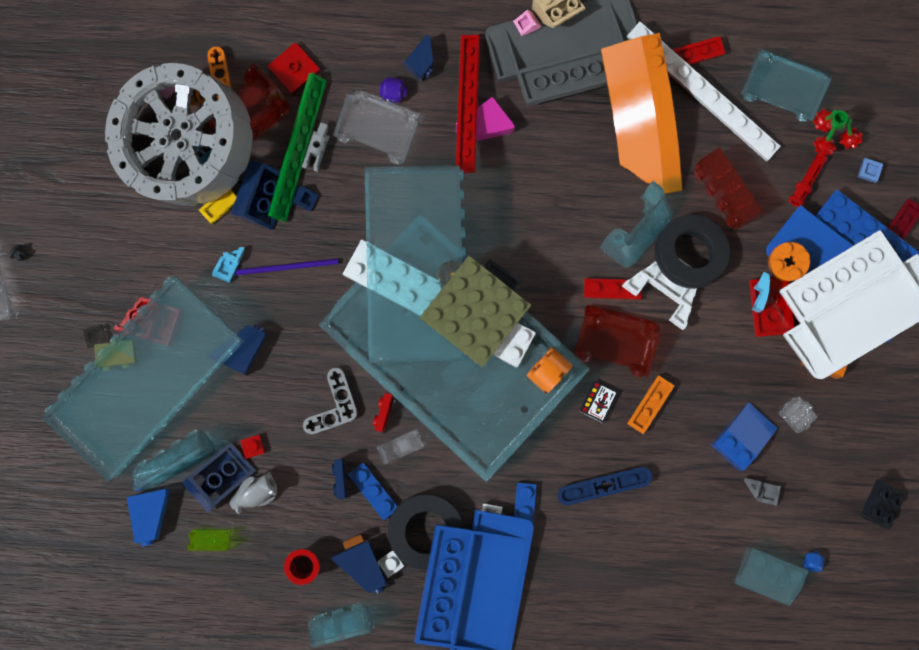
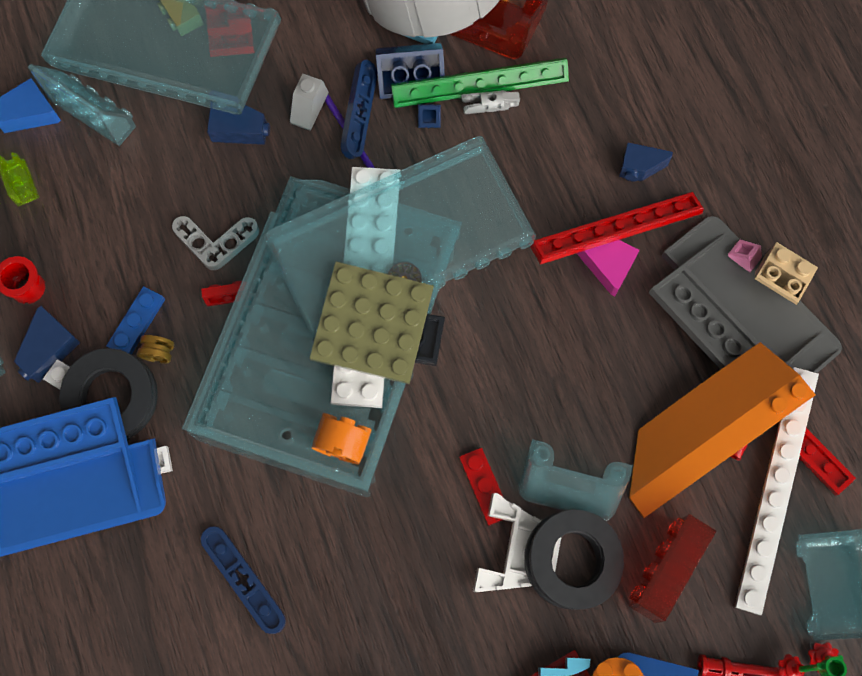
camera: 70 degrees right, 10 degrees down
(217, 208) = (379, 37): yellow tile -> none
(218, 477) = (89, 158): dark blue slope -> none
(228, 264) = (324, 71): medium azure slope -> none
(252, 287) = (307, 101): none -> light grey slope
(252, 446) = (136, 179): red plate -> none
(254, 493) = (84, 199): light grey animal -> none
(277, 249) = (355, 122): none -> dark blue piece
(293, 68) = (564, 41): red plate -> none
(338, 471) = (133, 279): dark blue plate -> none
(353, 541) = (70, 324): dark orange tile -> none
(378, 124) = (546, 148): clear windscreen -> none
(392, 90) = (592, 148): dark purple head -> none
(400, 447) = (195, 327): clear slope -> none
(405, 483) = (155, 348): none -> pearl gold wheel
(525, 501) = (188, 495): blue plate -> none
(599, 401) = (343, 529): piece -> none
(618, 339) = (426, 515): clear red windscreen -> none
(650, 404) = (364, 592): orange plate -> none

